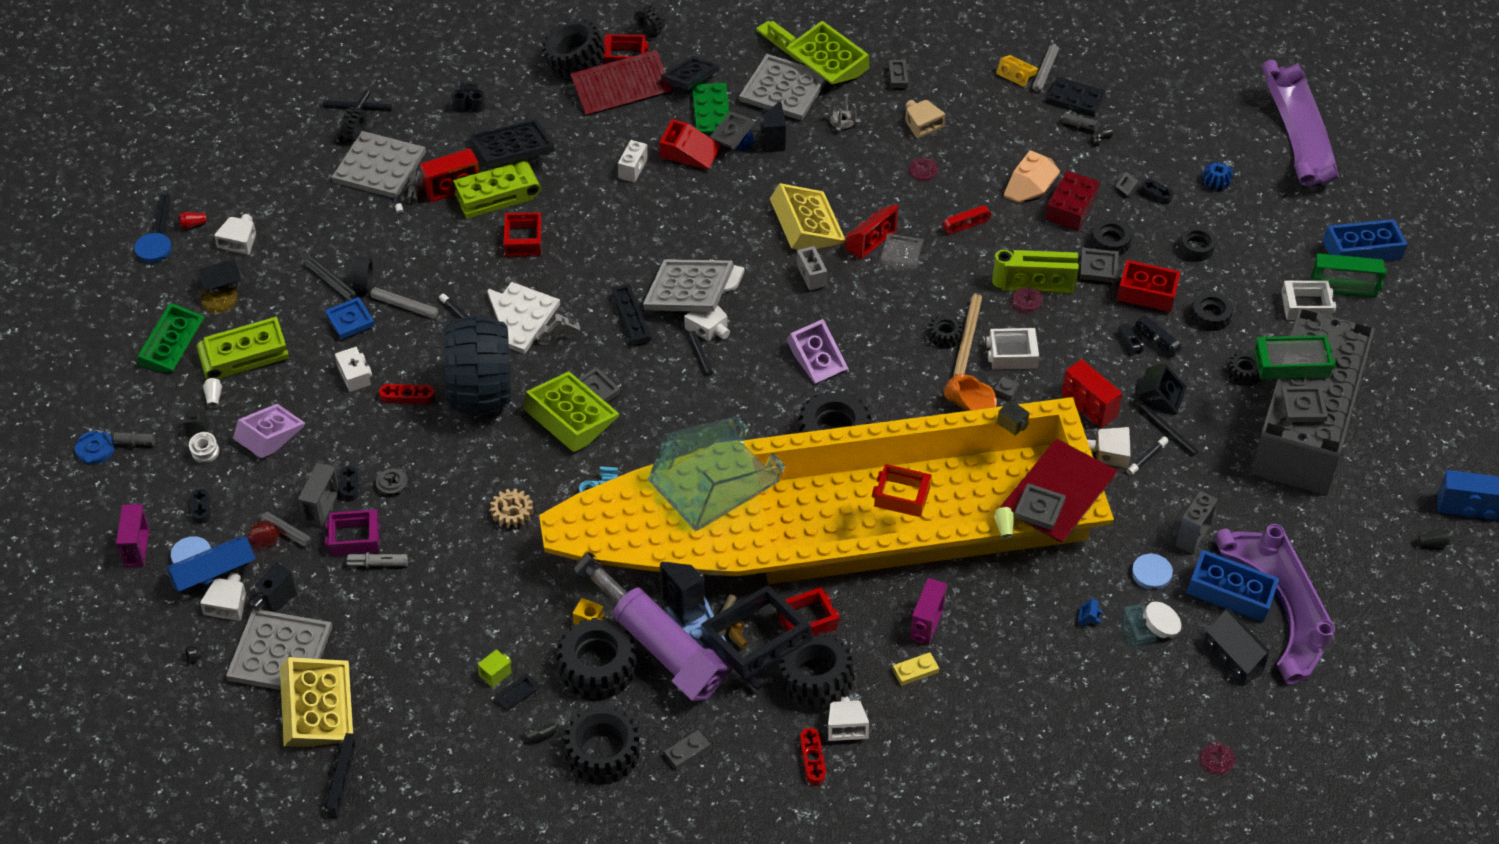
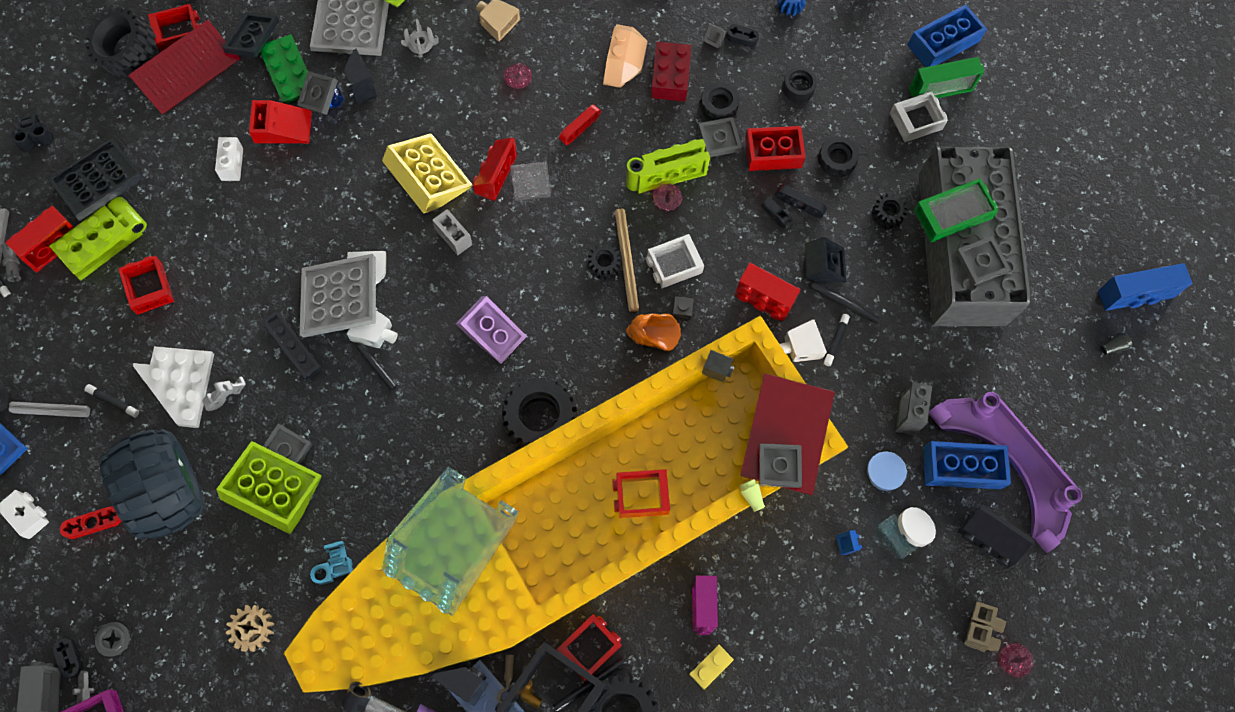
camera: 25 degrees left, 20 degrees up
(355, 503) = (83, 692): none -> light grey piece
(1192, 715) = (981, 627): none -> dark tan hips

